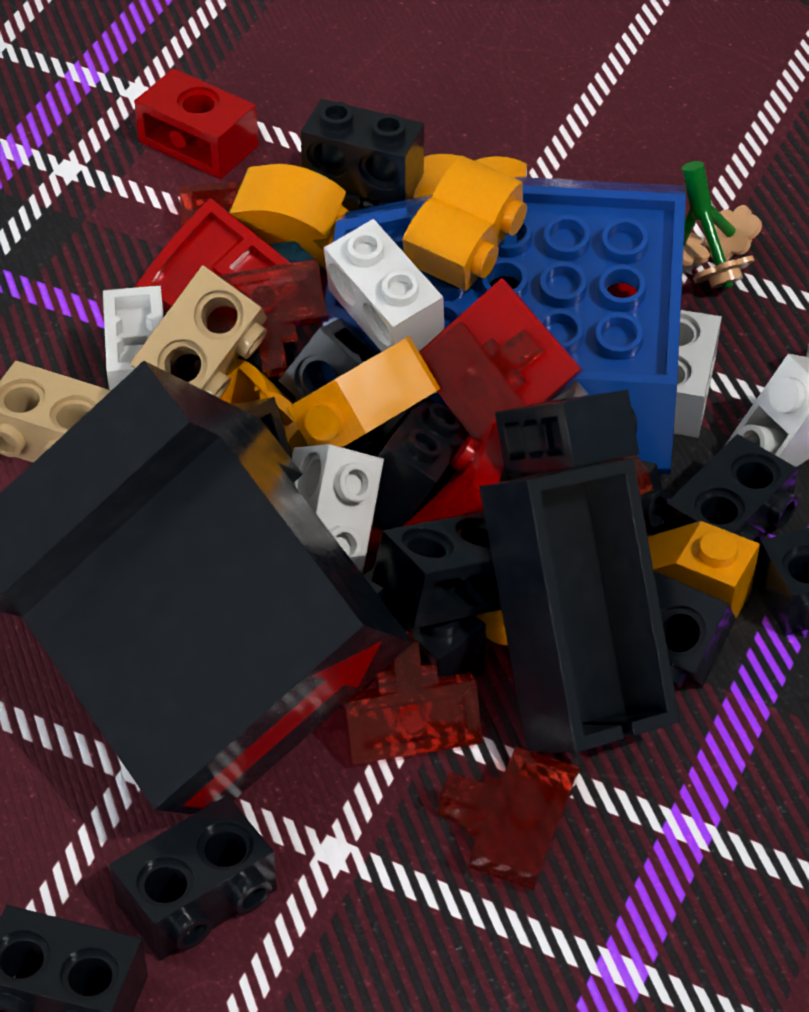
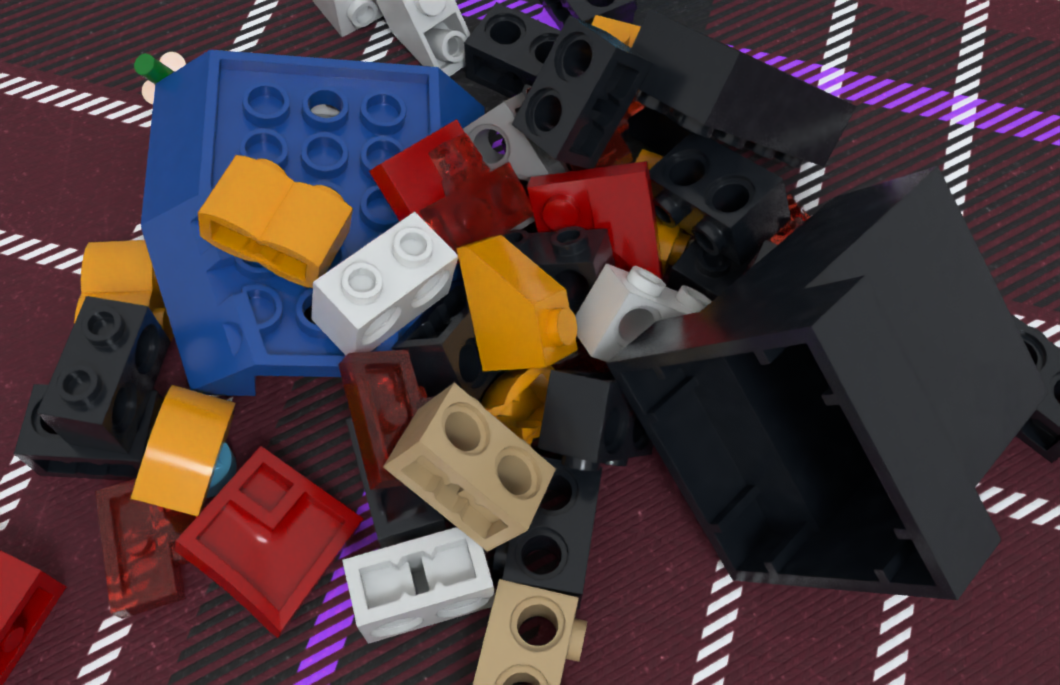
camera: 100 degrees left, 15 degrees up
(512, 815) = (868, 161): clear red hinge -> none

